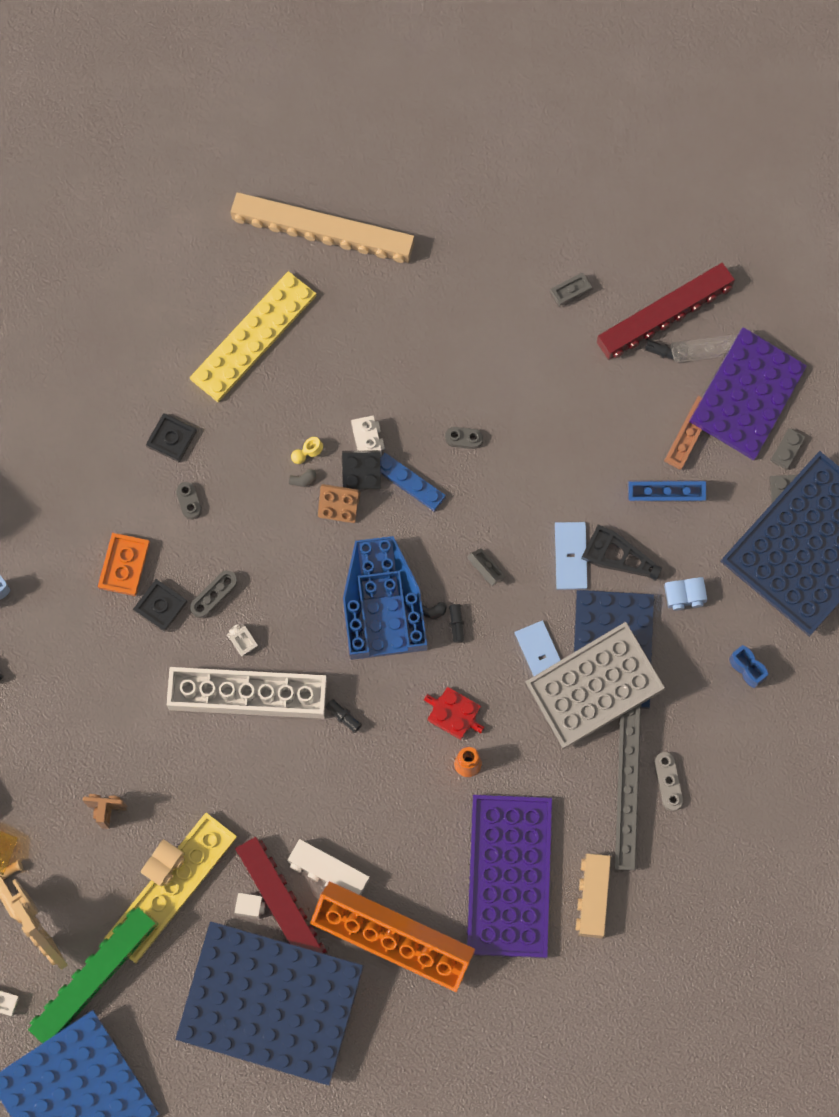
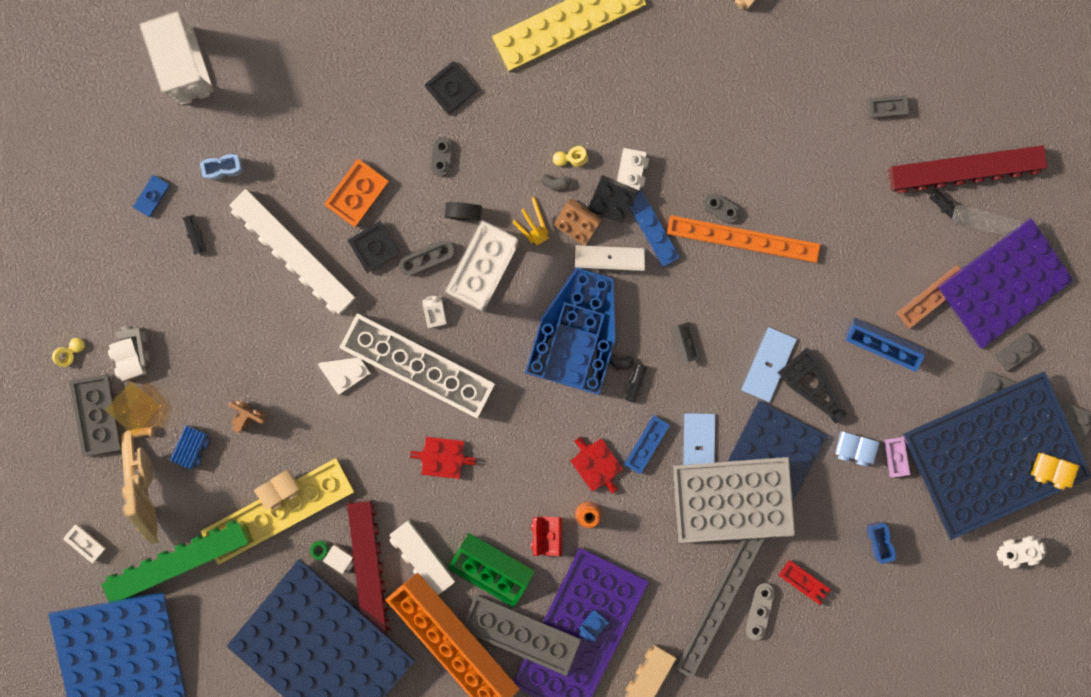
camera: 25 degrees right, 15 degrees up
(62, 863) = (190, 447): none -> blue brick
(86, 641) = (286, 246): none -> white brick
(181, 731) = (344, 373): none -> white wing
(220, 907) = (313, 550): none -> green plate
(229, 537) = (463, 211): none -> black tyre
(268, 573) = (482, 266): none -> white window
(307, 769) = (442, 457): none -> red plate
(308, 530) = (538, 235): none -> yellow plant
(343, 716) = (495, 423): black pin -> none
(382, 521) = (597, 257): none -> white piece
(398, 853) = (491, 570): none -> green slope
(437, 797) = (547, 536): none -> red bracket
(456, 899) = (522, 635): none -> dark grey plate
(492, 674) = (646, 444): none -> blue plate
(496, 456) = (743, 239): none -> orange tile
(518, 860) = (592, 626): none -> blue bracket
(696, 735) = (803, 581): none -> red hinge
(726, 586) = (896, 457): none -> lavender plate

